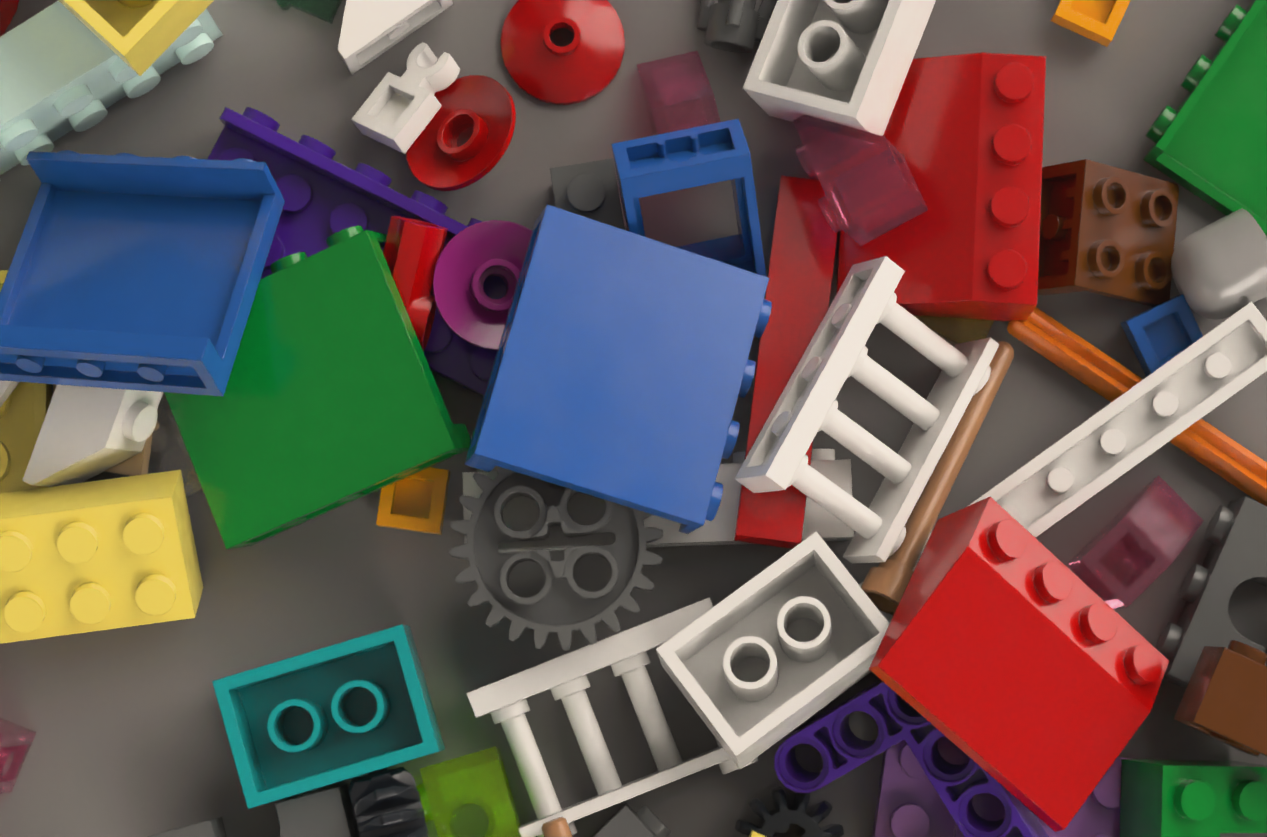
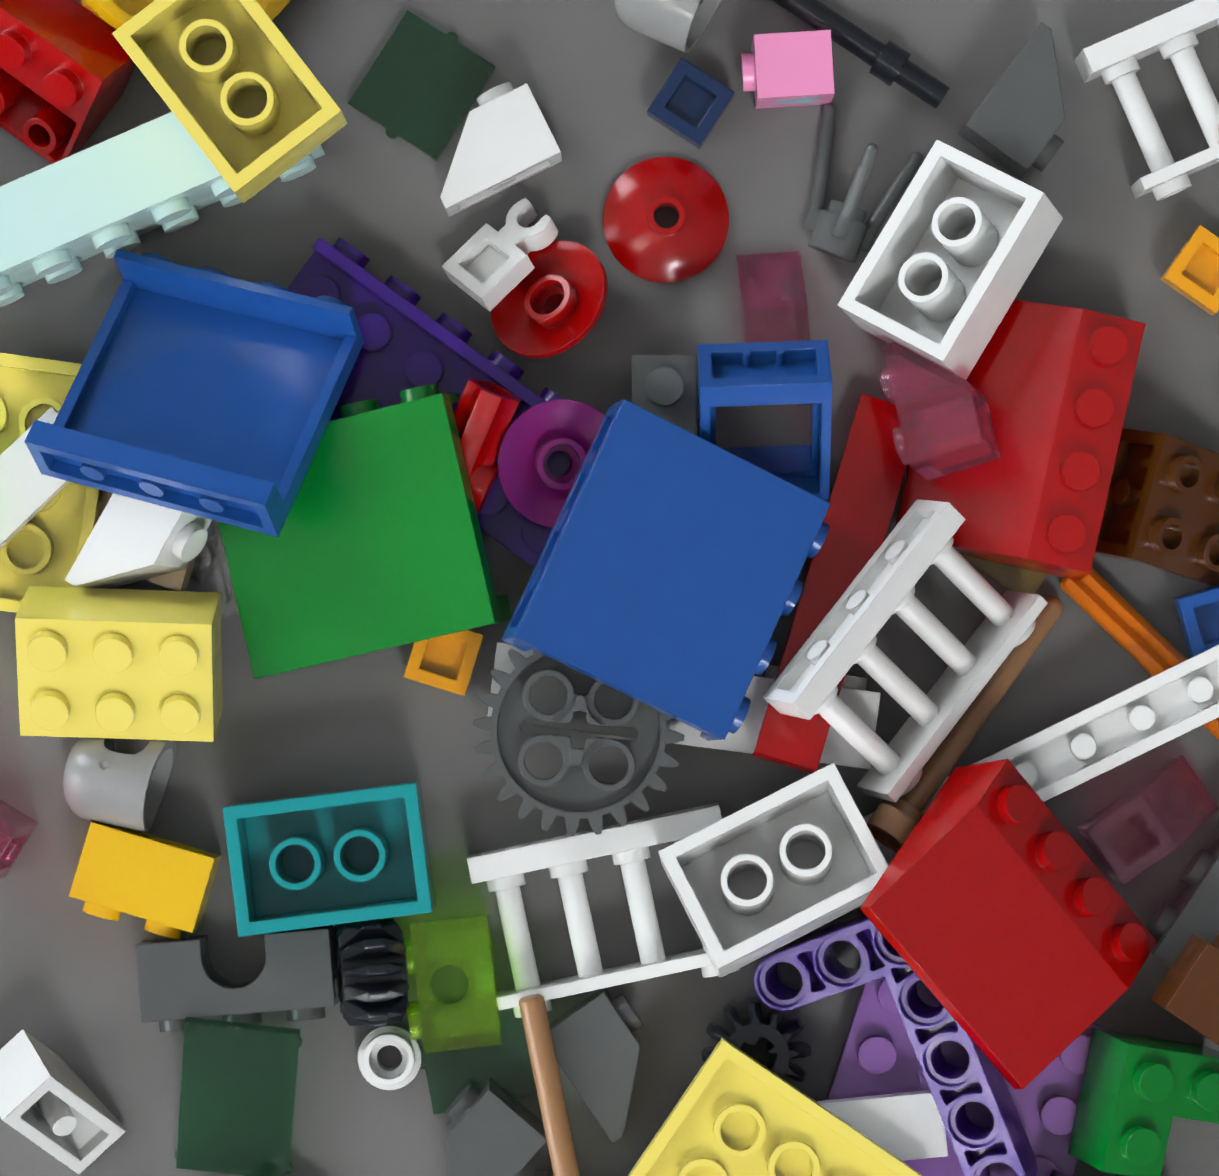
camera: 10 degrees right, 5 degrees up
(101, 679) = (115, 785): none -> light grey helmet
(147, 768) = (144, 878): none -> yellow brick

